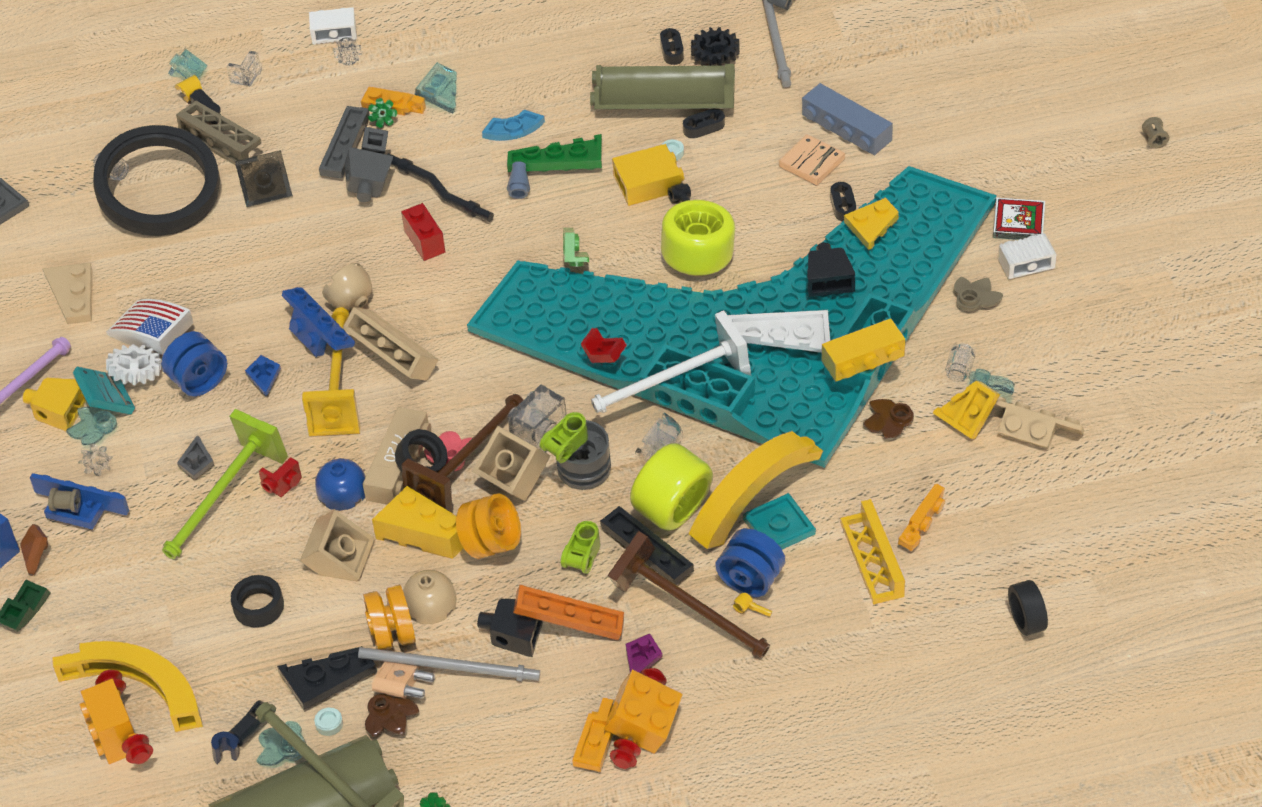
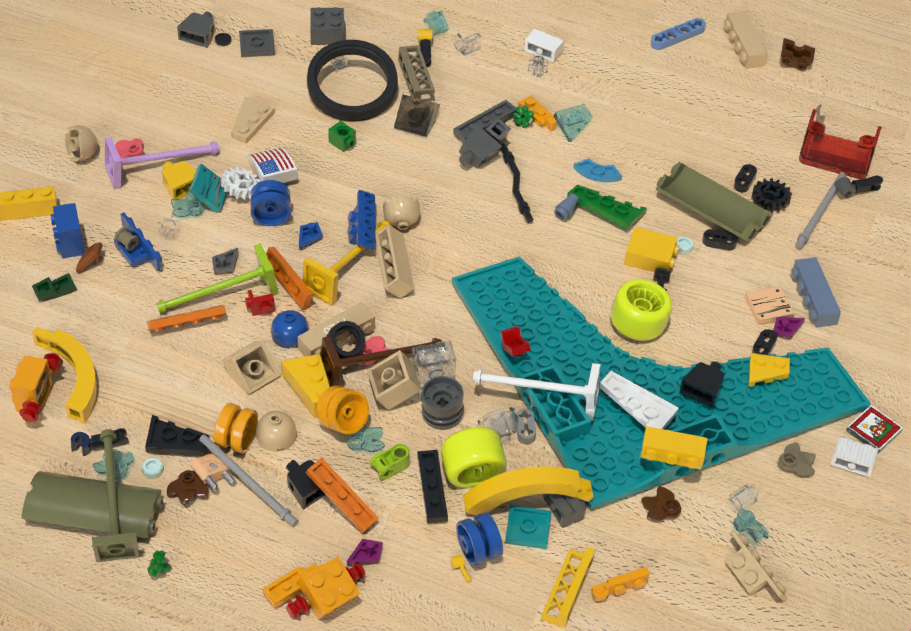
camera: 30 degrees right, 0 degrees up
(65, 138) = (326, 25): none -> dark grey brick
(200, 248) = (342, 136): none -> green brick
(206, 549) = (179, 319): none -> orange plate
(250, 586) = (175, 357): black tyre -> none
(300, 434) = (289, 279): none -> orange plate
(423, 232) = (479, 204): red brick -> none
(533, 544) = (368, 439): none -> clear light blue plate
(562, 439) = (433, 383): lime piece -> none
(570, 245) = (556, 264): bright green bracket -> none
(633, 563) = (404, 491): reddish brown tile -> none
(688, 425) = (529, 426): none -> light grey beam
(800, 481) = (565, 508): none -> dark grey brick
(848, 169) = (787, 326): none -> magenta piece
(969, 409) = (716, 533): yellow wing -> none

